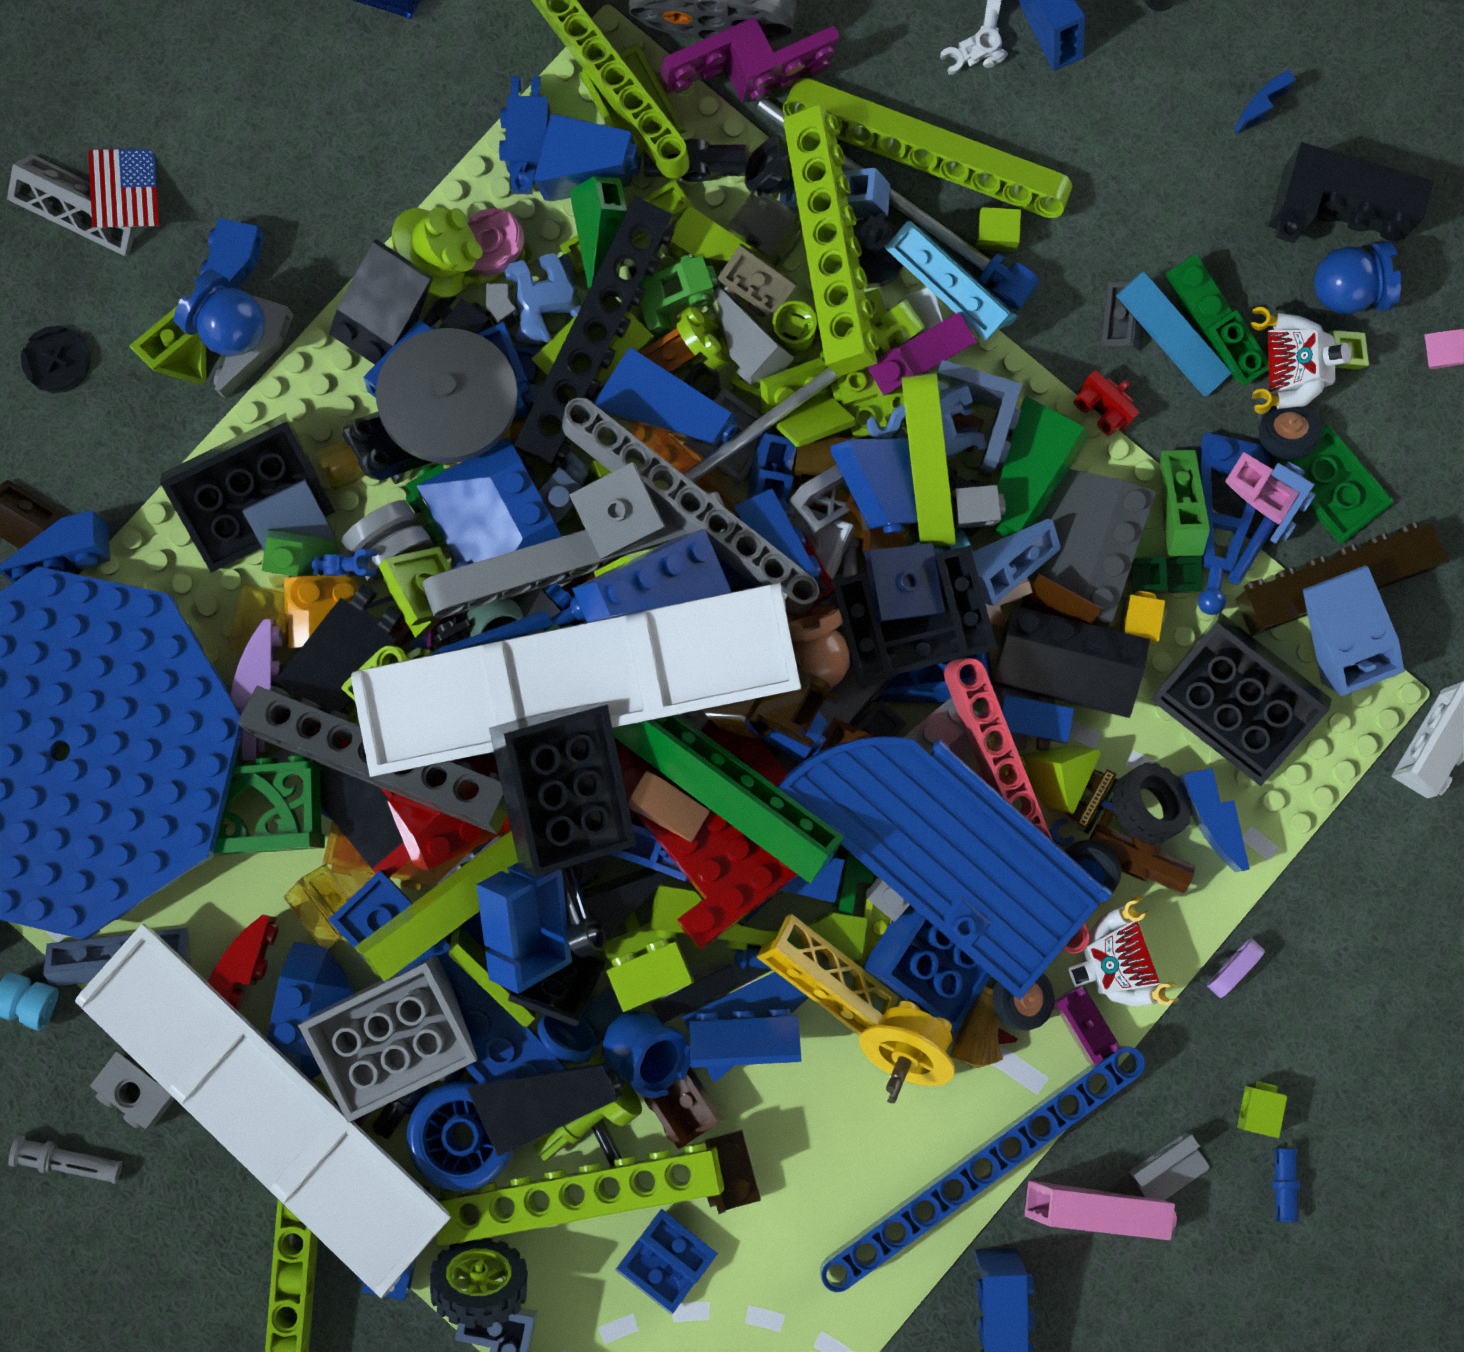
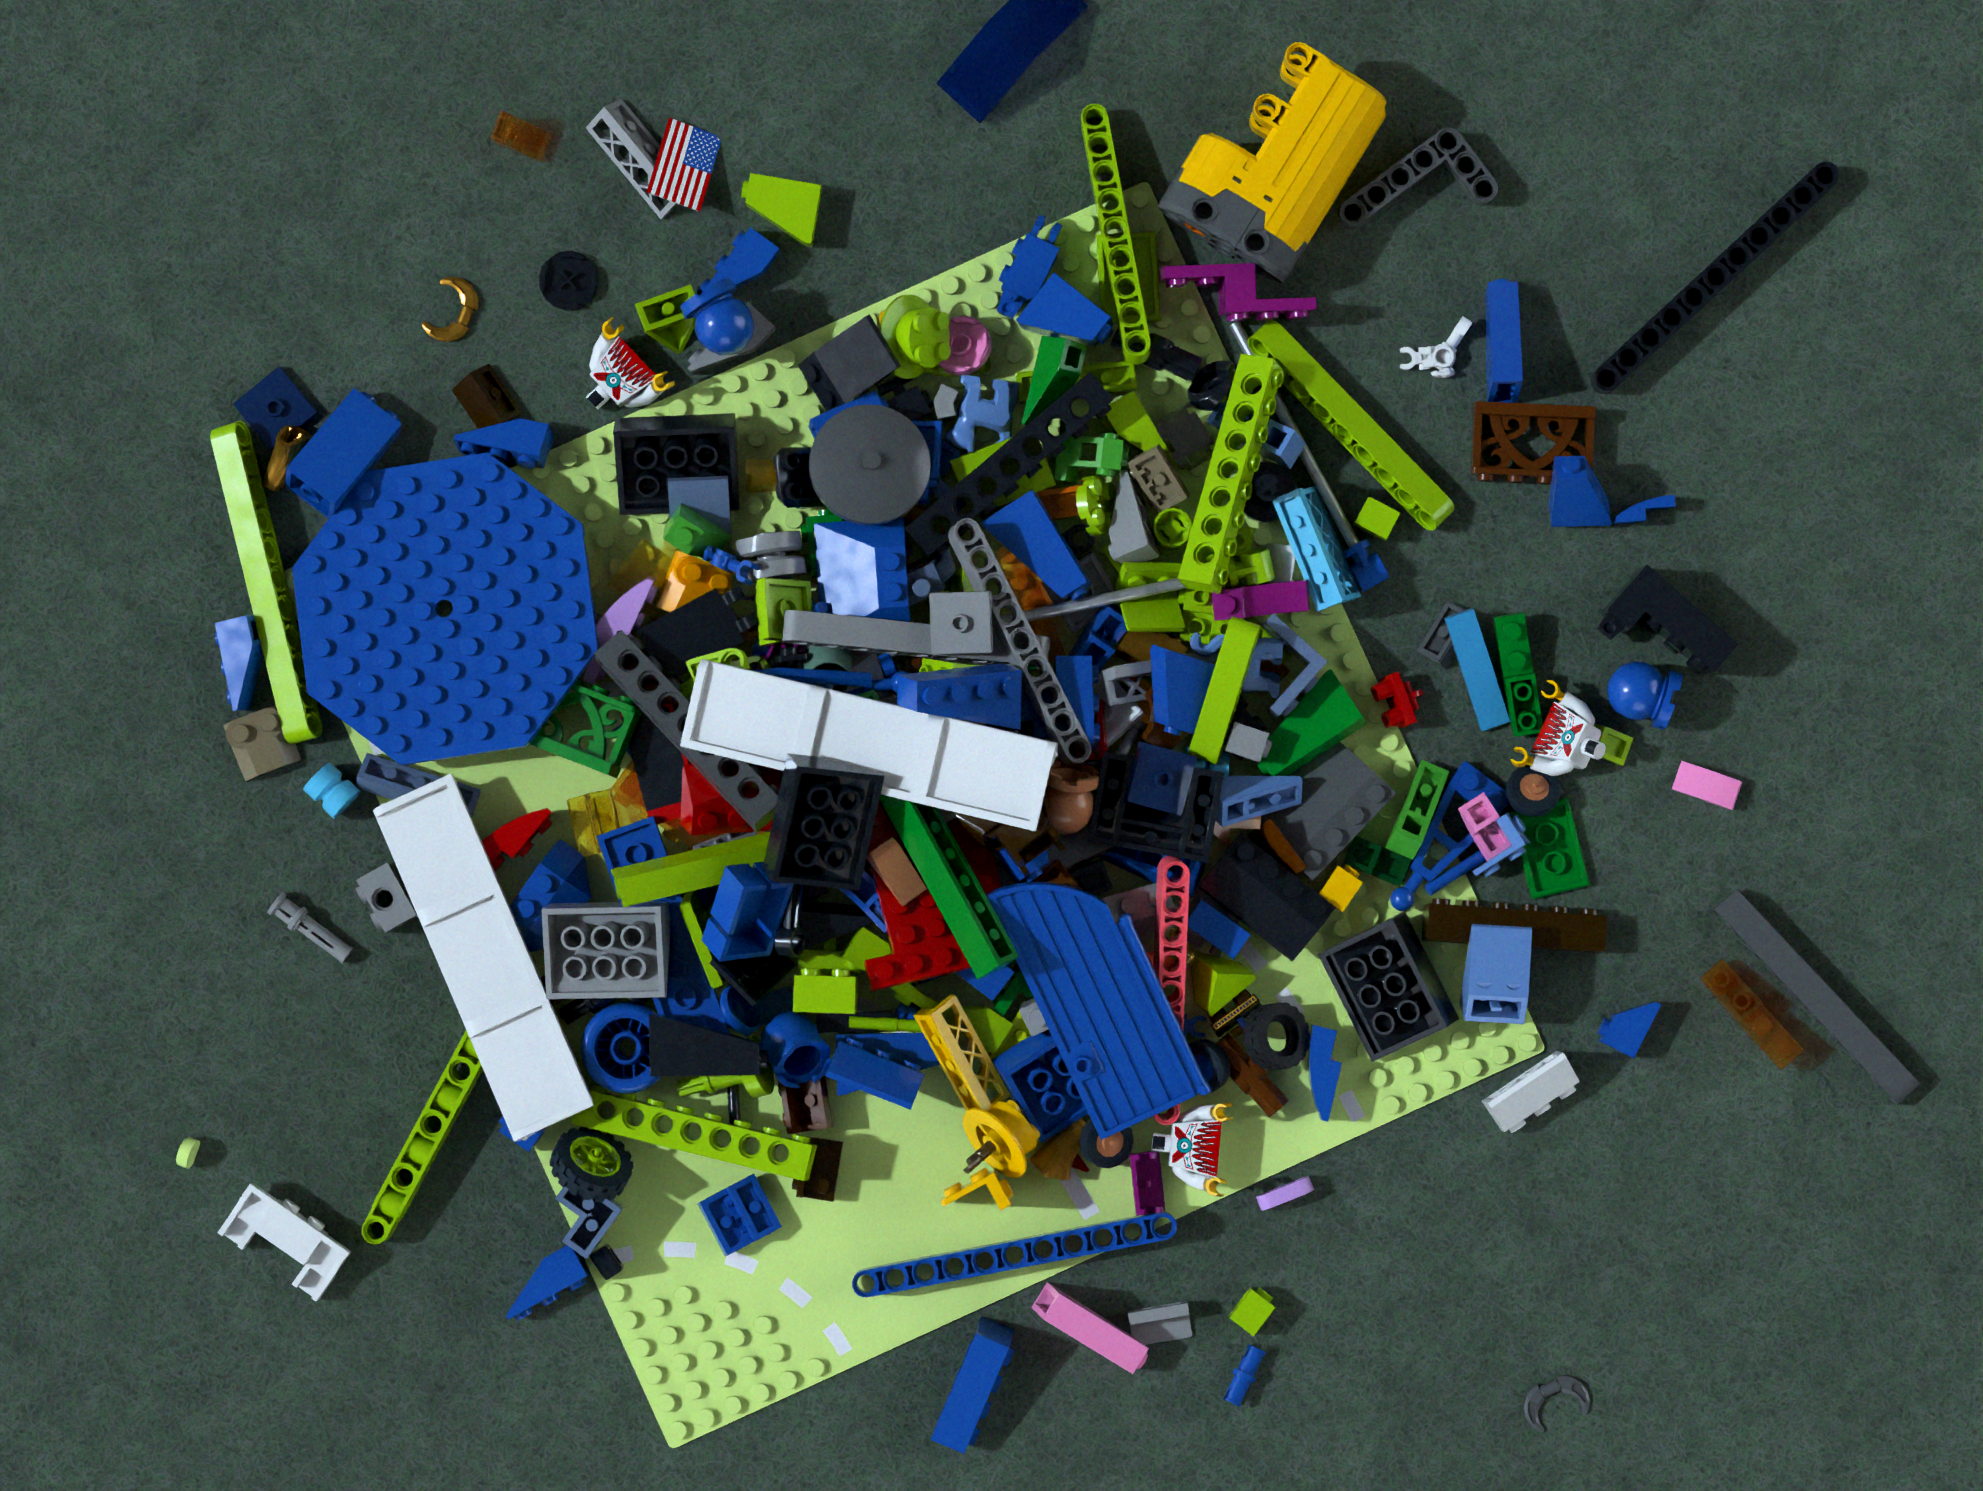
camera: 25 degrees right, 5 degrees up
(149, 425) = (622, 373): none -> torso
(245, 183) = (785, 203): none -> lime slope
(729, 981) = (884, 1024): none -> lime piece
(908, 1102) = (999, 1188): none -> yellow bracket
(1137, 43) = (1499, 415): none -> reddish brown fence
(1189, 112) = (1576, 494): none -> blue slope

